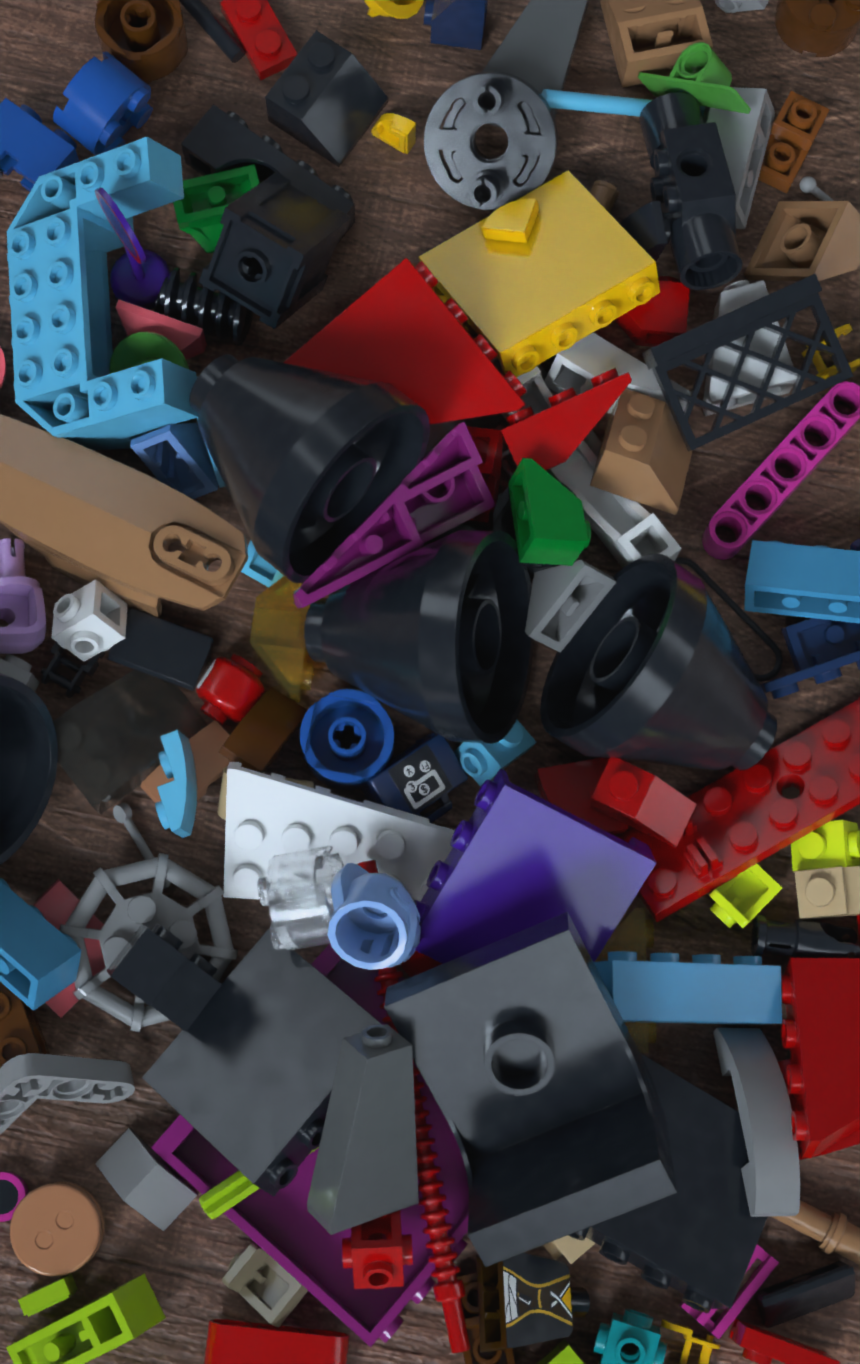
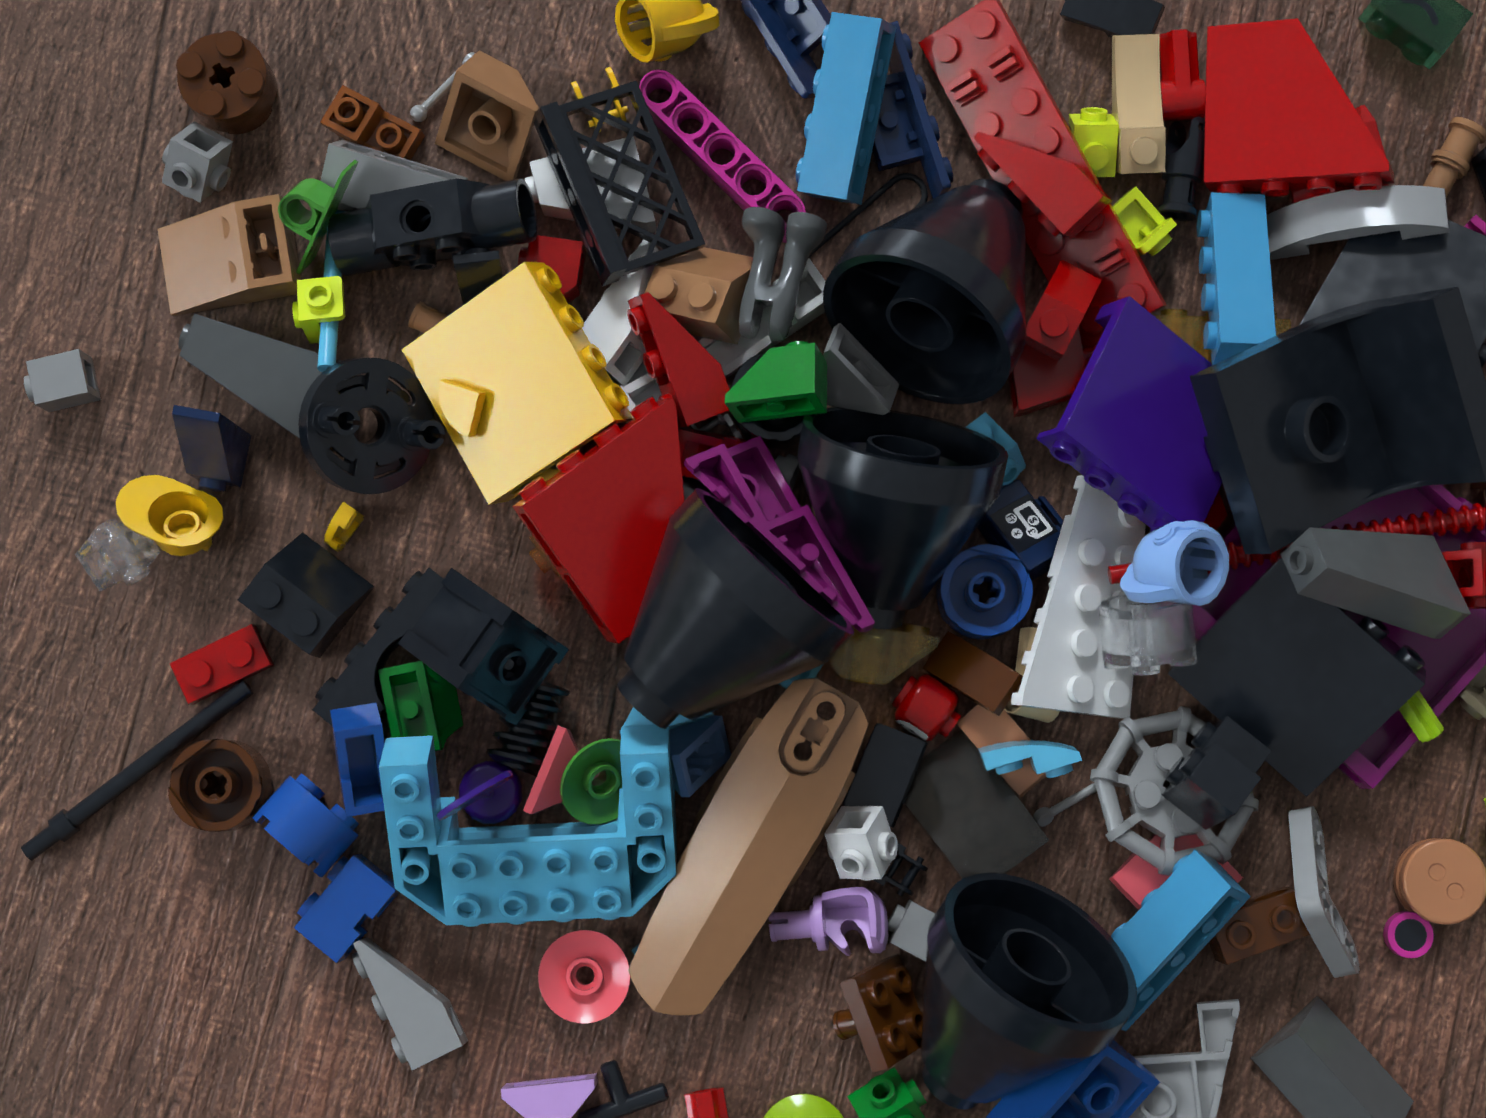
camera: 80 degrees left, 5 degrees up
(145, 1180) = (1395, 800): light grey slope -> none
(178, 127) = (358, 753): none -> blue brick
(609, 91) = (318, 302): none -> neon yellow bracket
(627, 507) = (767, 232): none -> dark grey piece
(771, 793) = (1054, 185): none -> red slope

